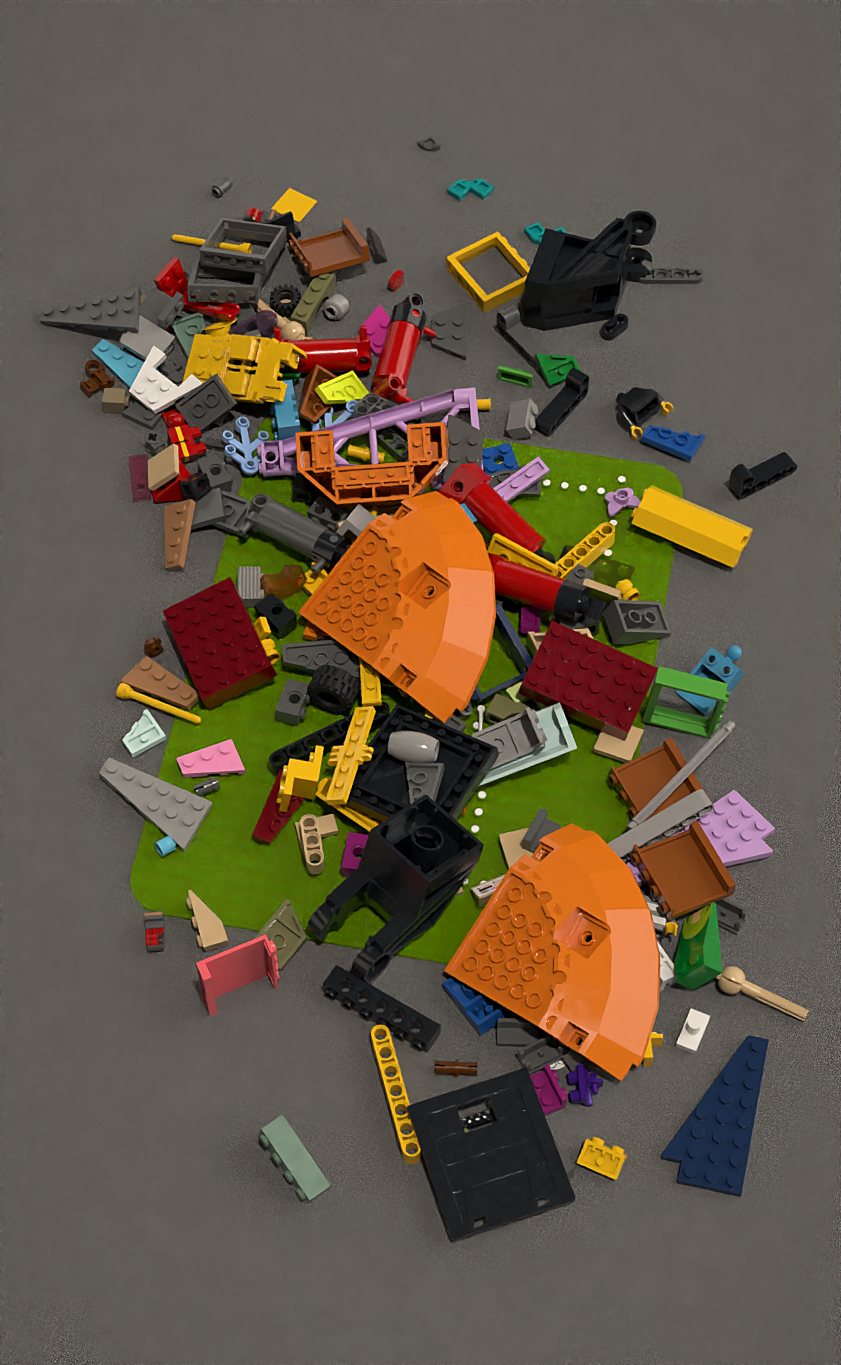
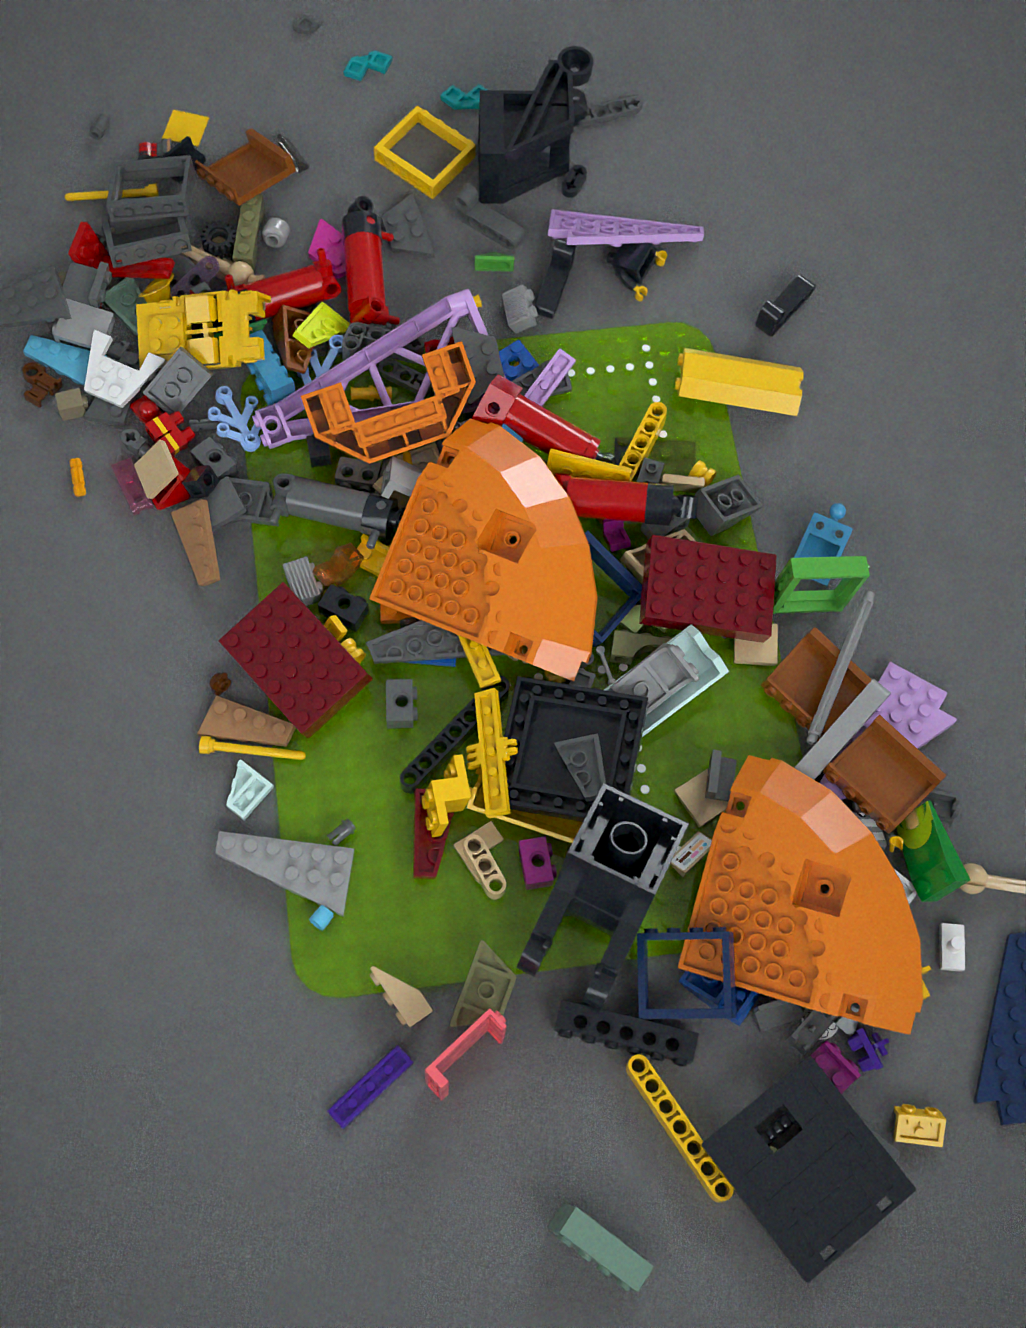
camera: 25 degrees left, 10 degrees up
(99, 458) = (77, 477): none -> light orange axle
(155, 930) = (346, 1023): leg -> none
(156, 986) = (370, 1087): none -> dark purple tile
(216, 759) = (337, 797): bright pink wing -> none
(333, 688) = (441, 677): black tyre -> none
(396, 280) = (328, 186): red tile -> none
(413, 747) = (557, 723): light grey piece -> none
(456, 1068) = (729, 1073): reddish brown pin -> none
(478, 984) = (729, 1009): none -> dark blue window
(555, 367) = (533, 242): green wing -> none
(614, 369) = (603, 229): none -> lavender wing
(621, 499) = (655, 371): lavender animal -> none
(676, 443) = (683, 293): blue wing -> none

